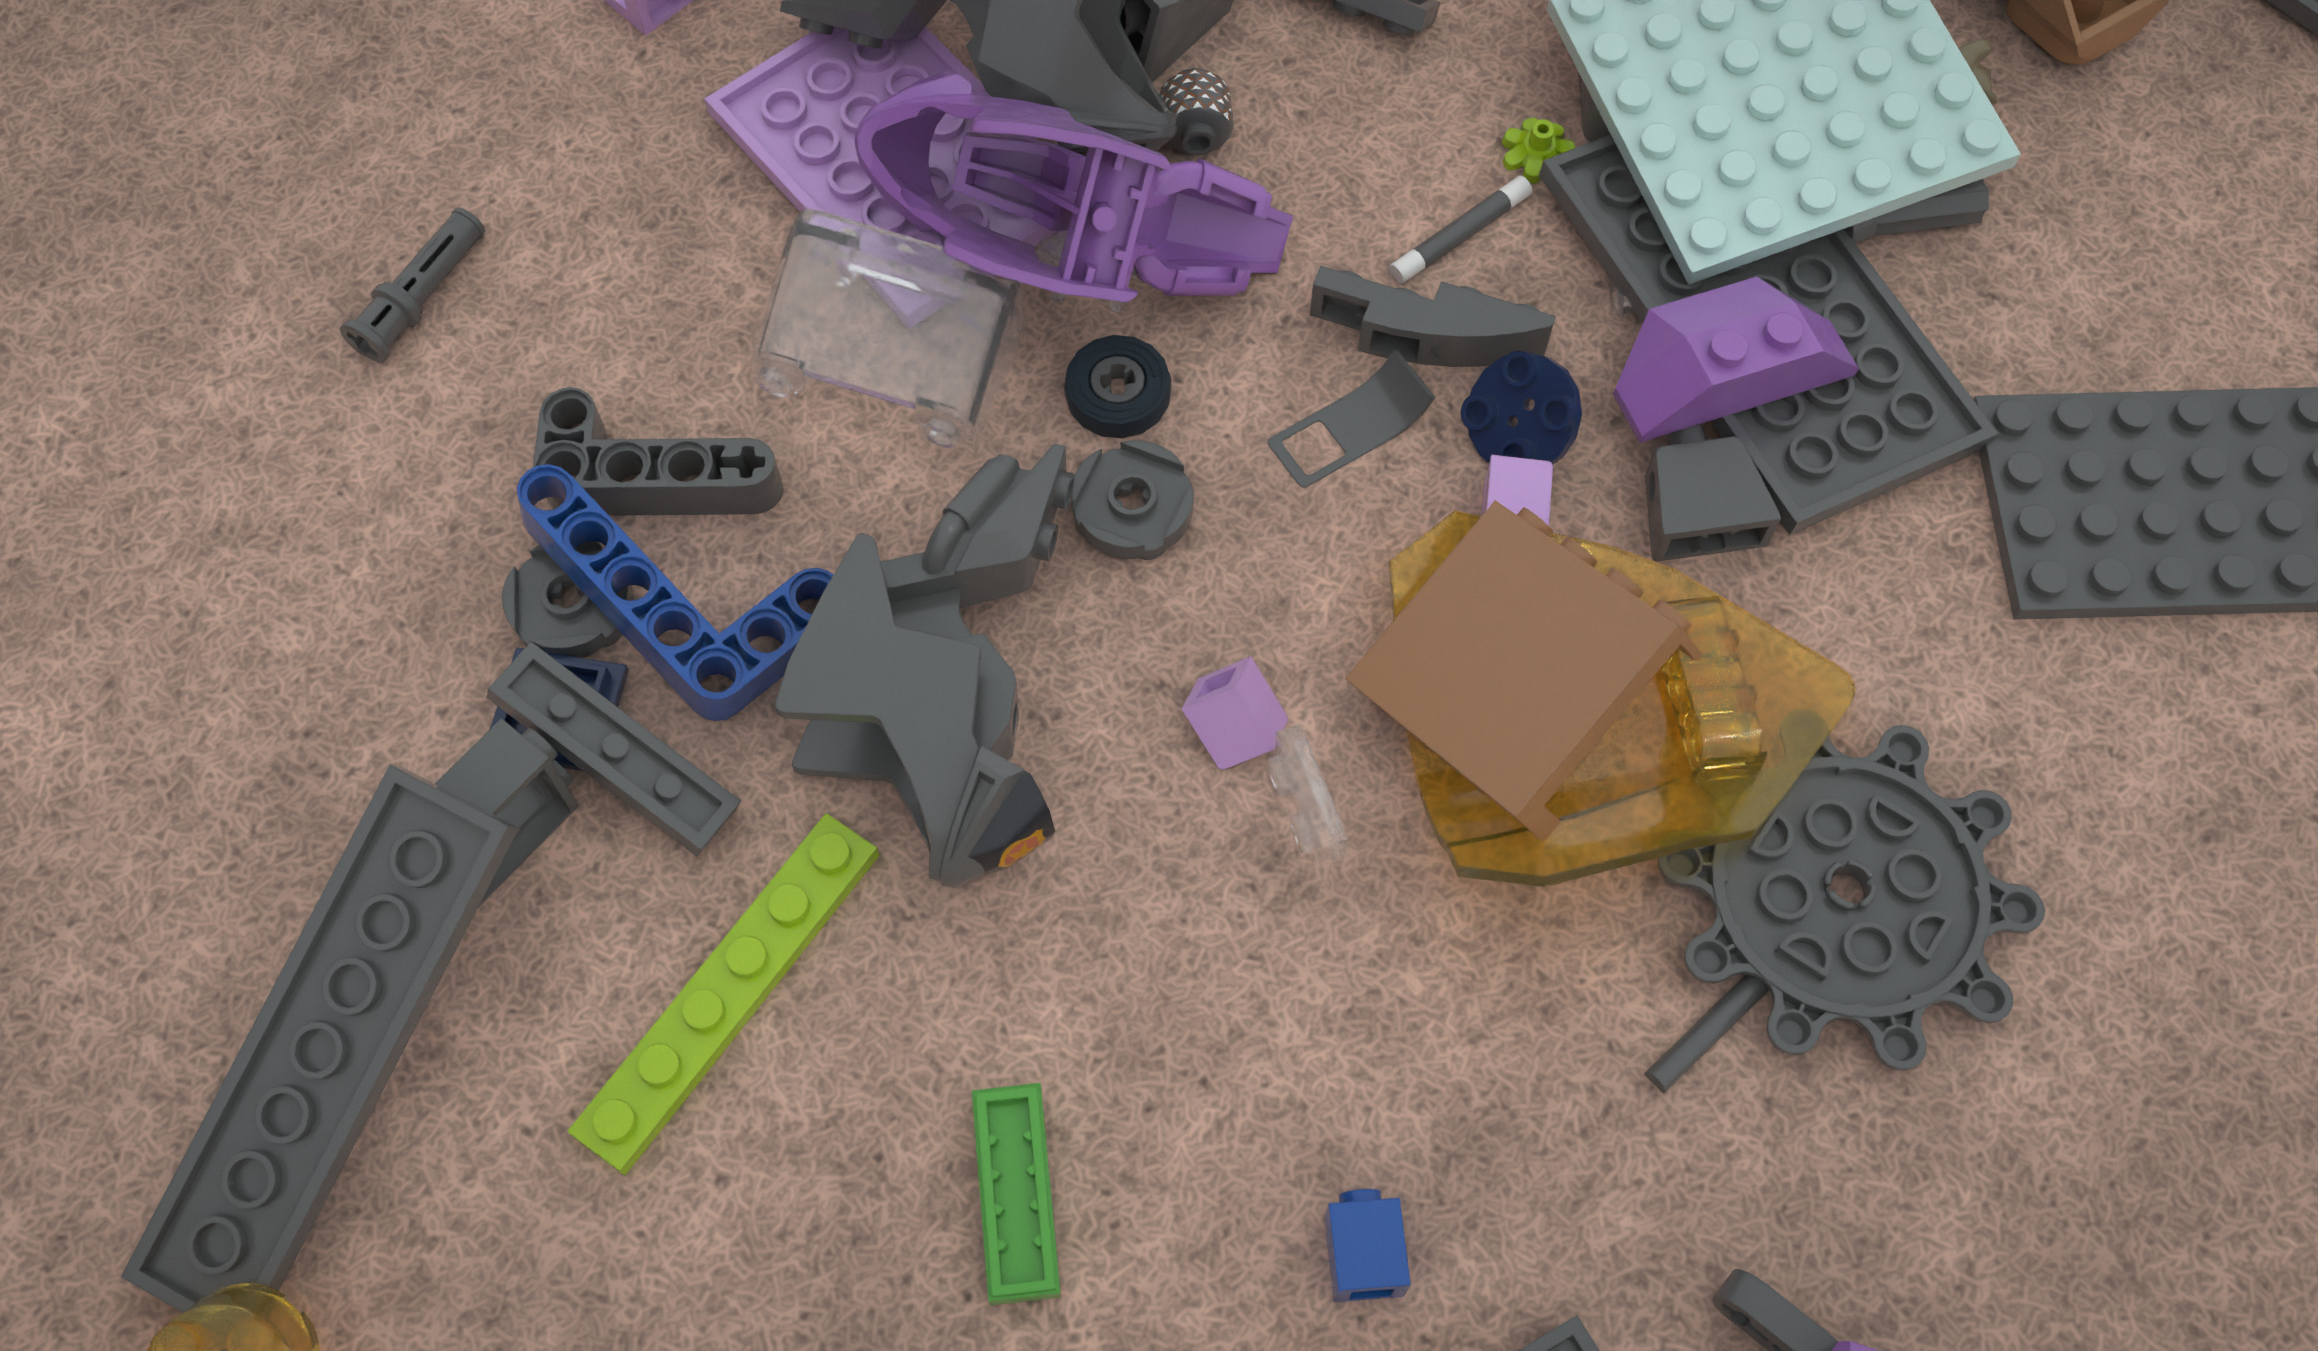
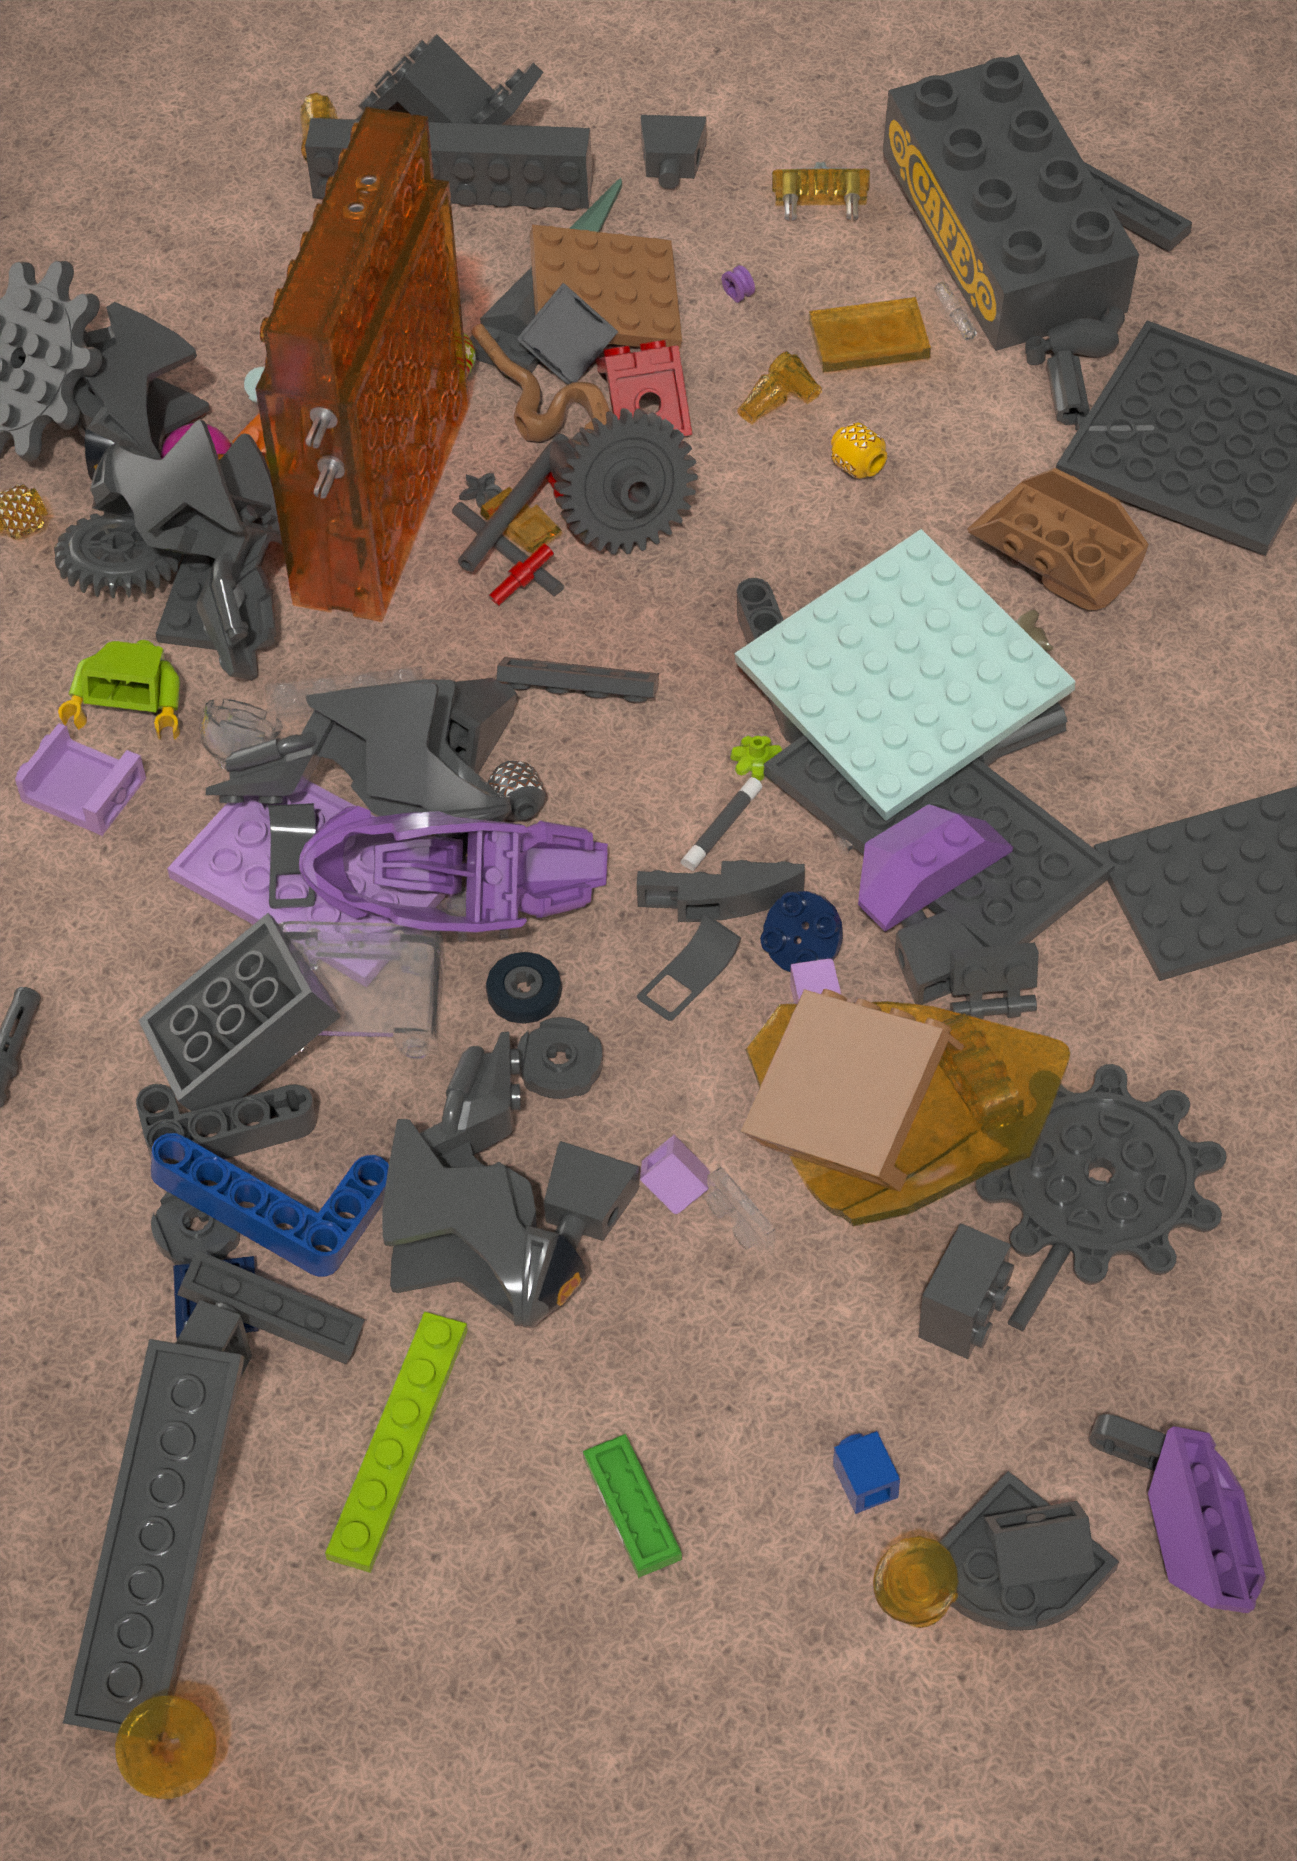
camera: 15 degrees left, 10 degrees down
(711, 328) = (238, 1018): none -> dark grey slope
(874, 79) = (290, 830): none -> dark grey piece
(1102, 708) = (588, 1192): none -> dark grey torso
(1604, 1006) = (966, 1291): none -> dark grey brick
(1779, 542) = (991, 970): none -> dark grey plate

